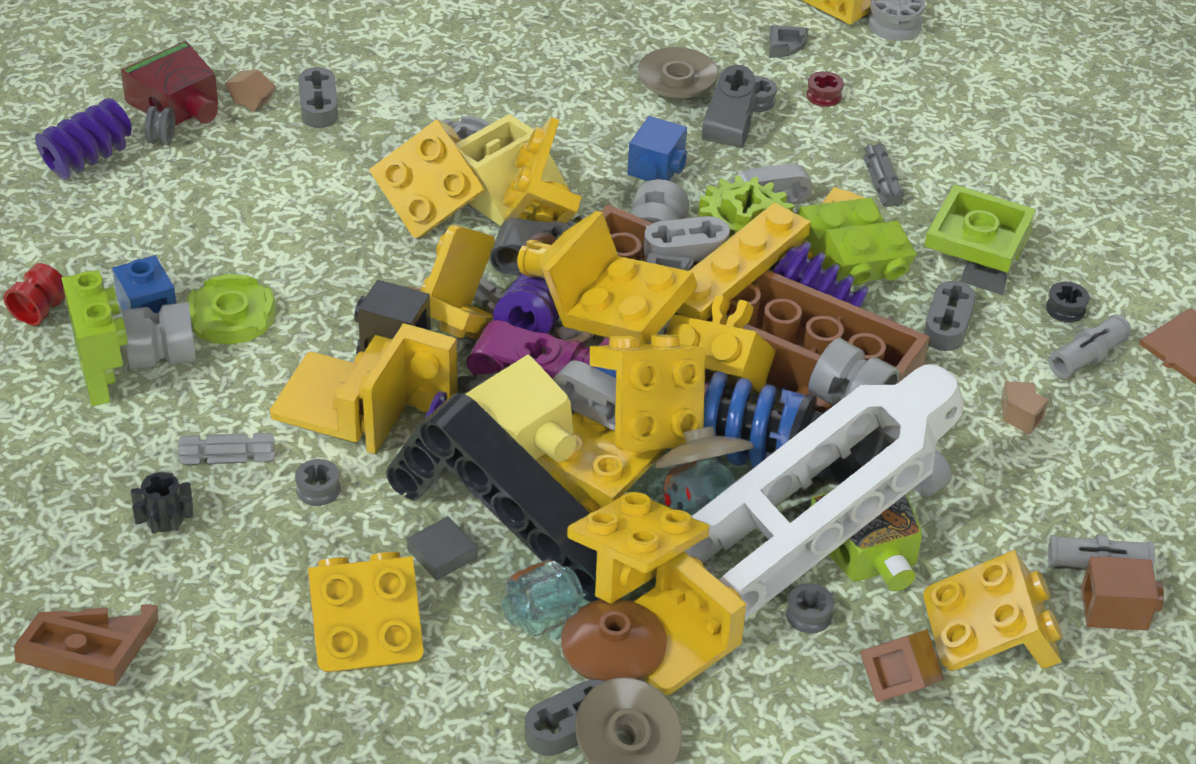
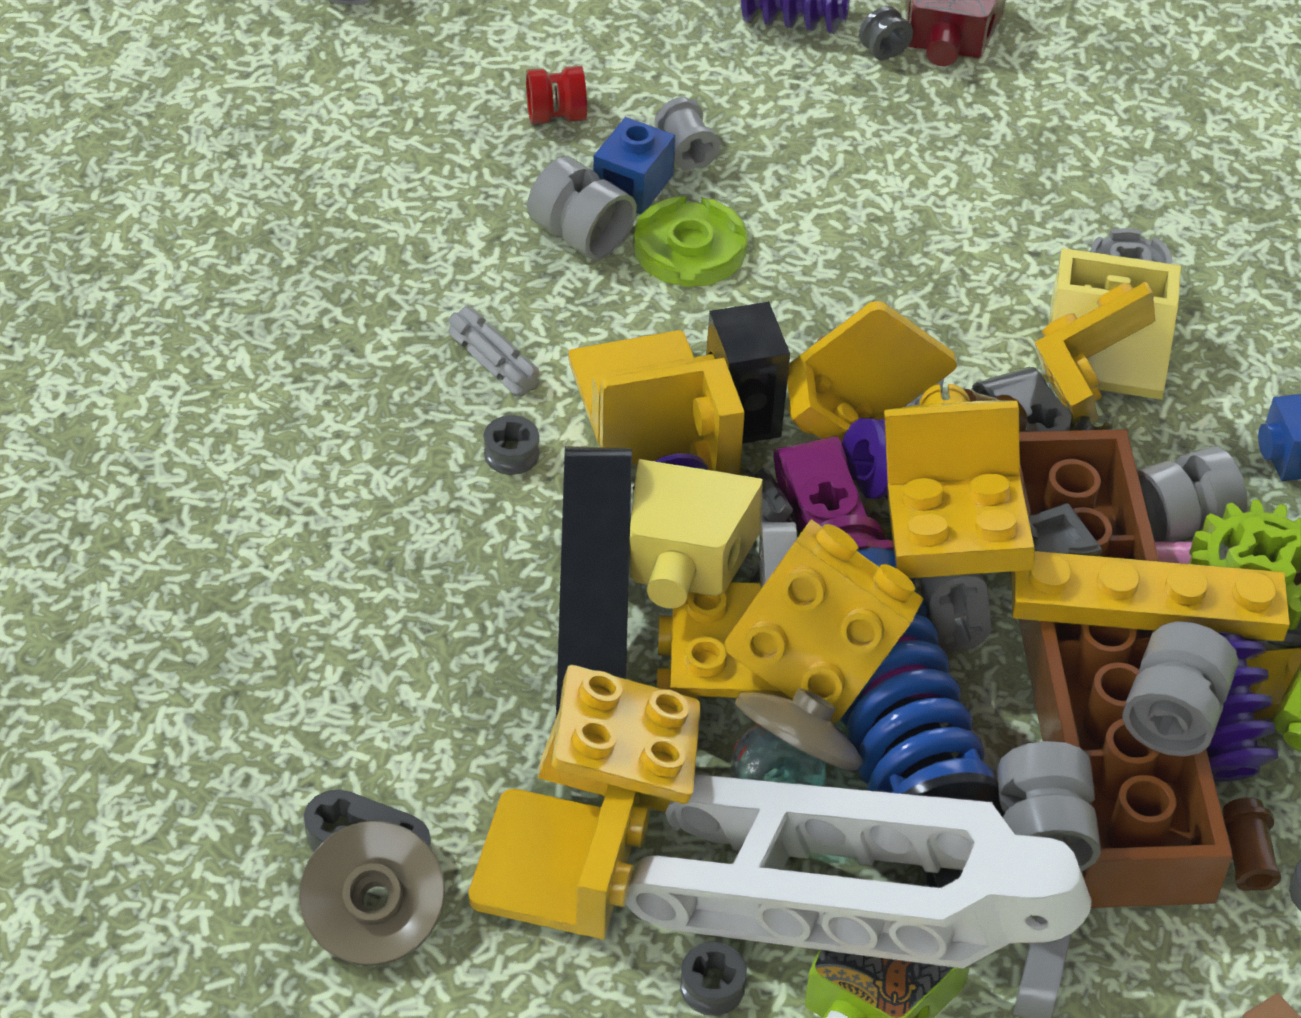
camera: 55 degrees right, 5 degrees up
(85, 642) = (157, 401): dark orange wing -> none
(95, 331) = (511, 152): lime plate -> none
(131, 249) = (694, 141): none -> light grey bush
(162, 502) = (369, 344): black gear -> none
(250, 89) = (1018, 63): medium nougat piece -> none
(318, 97) = (1064, 111): dark grey beam -> none
(365, 612) = (360, 577): yellow bracket -> none
(427, 178) = (1016, 262): yellow bracket -> none
(442, 548) = (512, 595): dark grey tile -> none
(542, 597) = (496, 713): clear light blue head -> none
(614, 641) = (495, 835): dark orange dish -> none
(686, 237) = (1131, 522): light grey beam -> none
(727, 345) = (997, 658): yellow brick -> none
(824, 281) = (1180, 689): none -> light grey wheel

